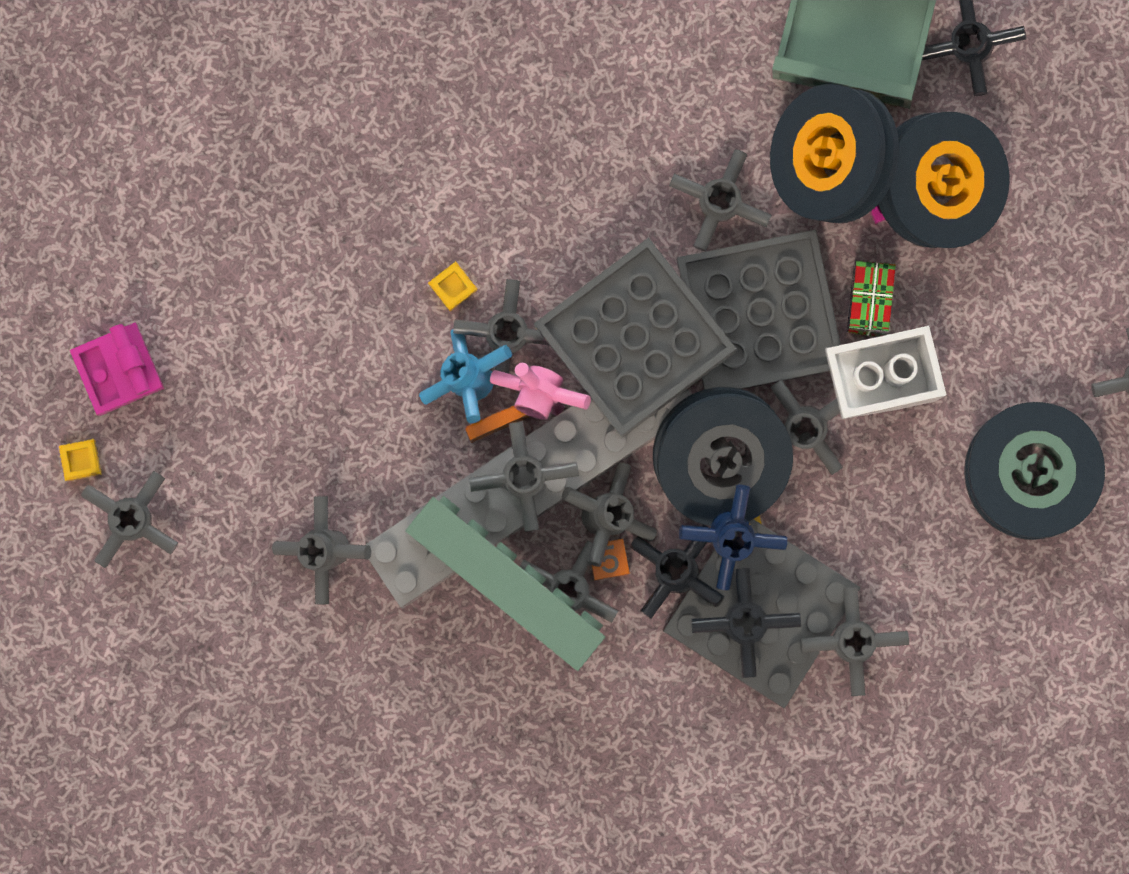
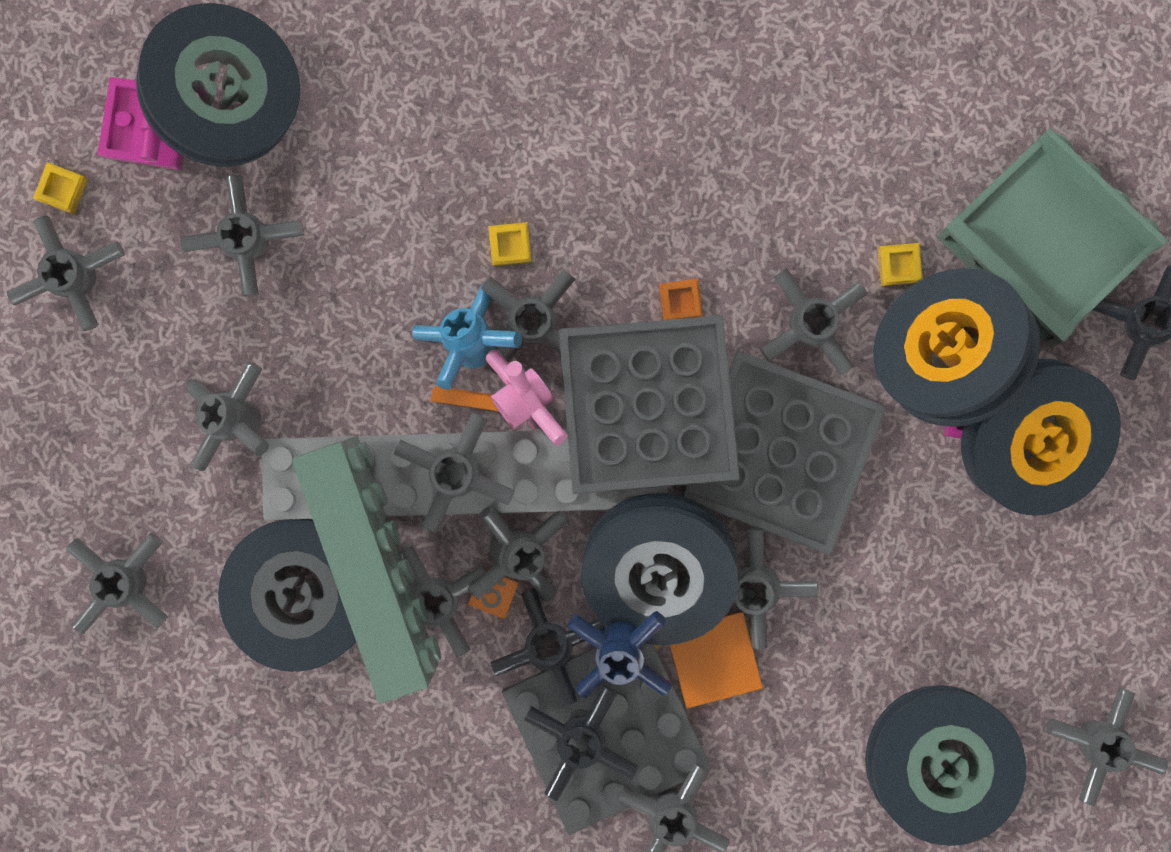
camera: 30 degrees right, 5 degrees up
(137, 326) = (170, 78): none -> black wheel
(236, 395) = (253, 246): none -> dark grey bar
(300, 730) = (106, 594): none -> dark grey bar
(417, 658) = (254, 616): none -> black wheel
(609, 246) = (680, 299): none -> orange tile
(758, 116) = (900, 264): none -> yellow tile
(812, 504) = (717, 663): none -> orange tile
(871, 298) = (899, 507): piece -> none
(886, 373) = (867, 589): white slope -> none

